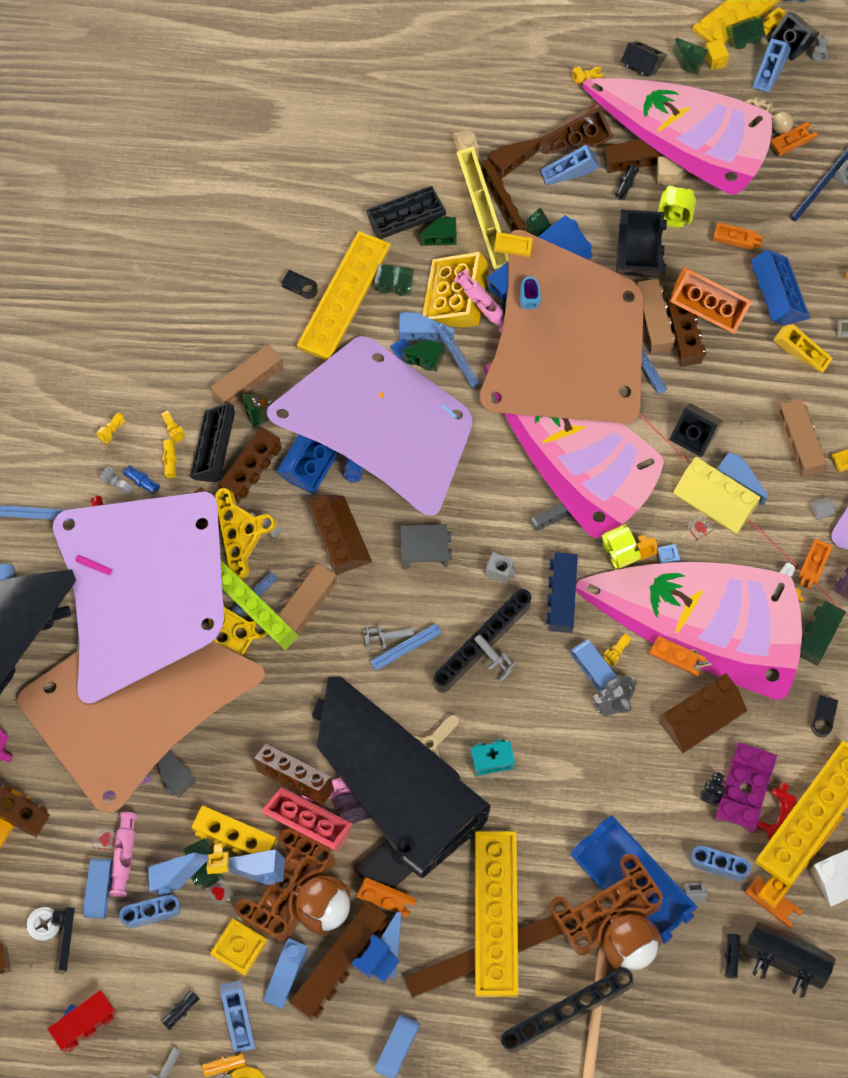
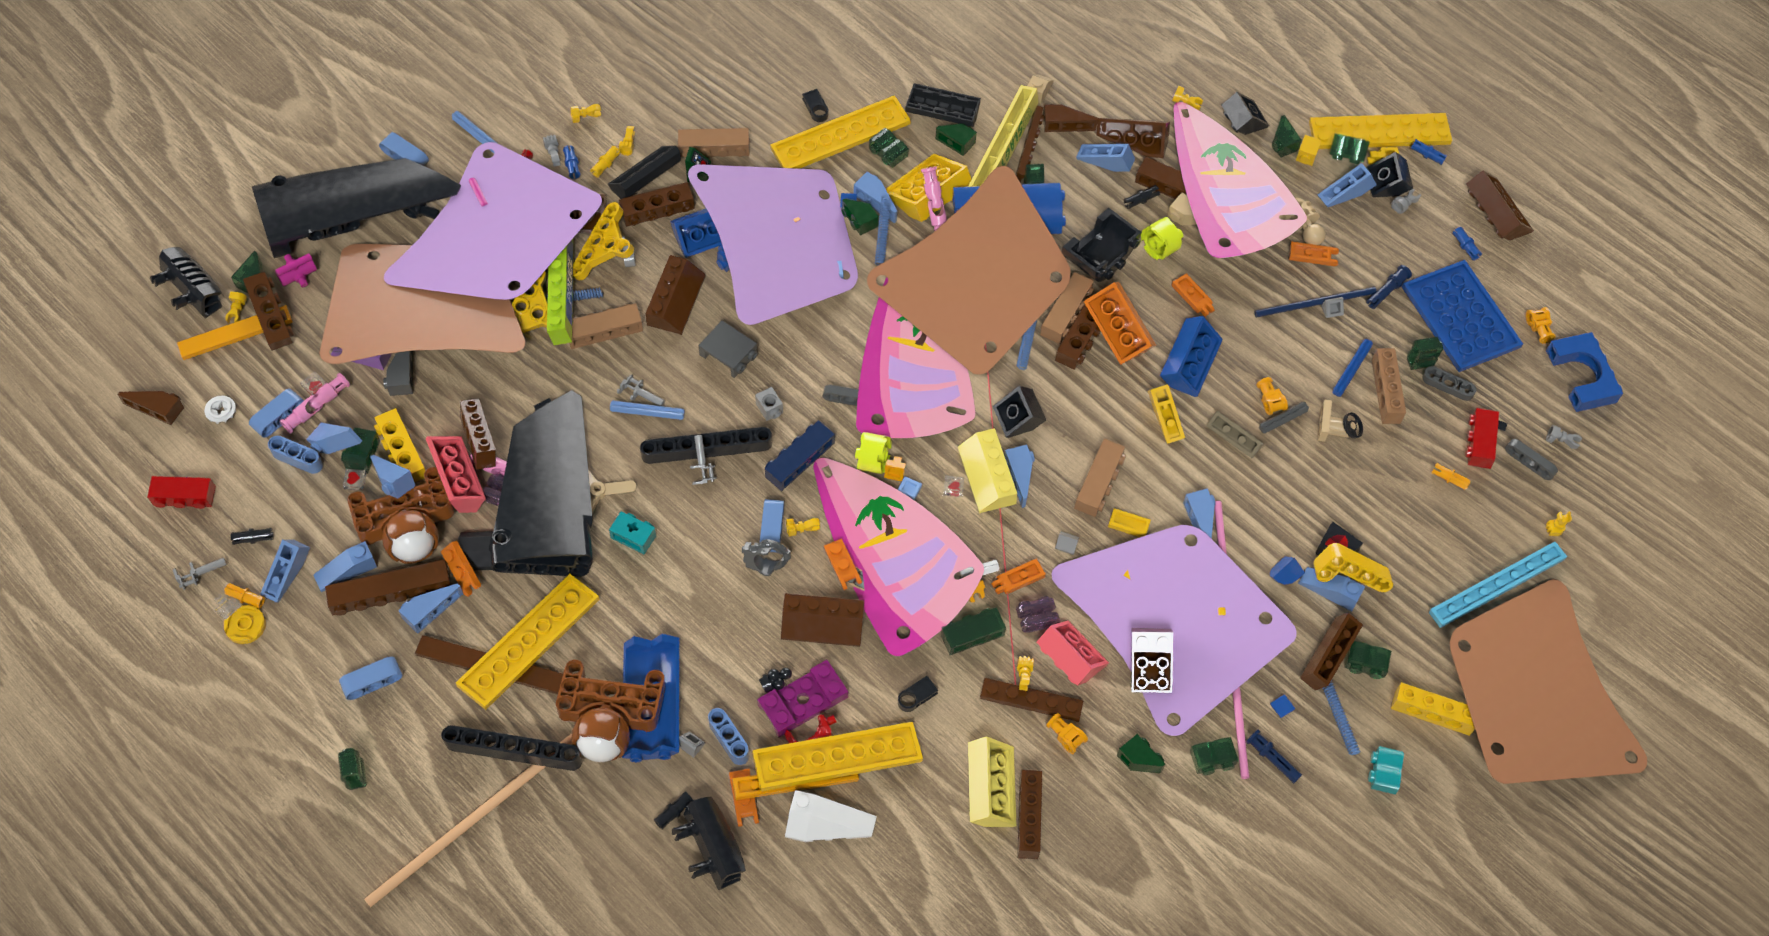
camera: 35 degrees right, 5 degrees down
(64, 920) = (234, 417): black hinge -> none
(218, 861) = (368, 452): yellow plate -> none
(239, 947) = (332, 526): yellow tile -> none
(376, 960) = (408, 602): blue piece -> none
(513, 244) = (994, 175): yellow tile -> none
(530, 293) = (973, 218): rock -> none

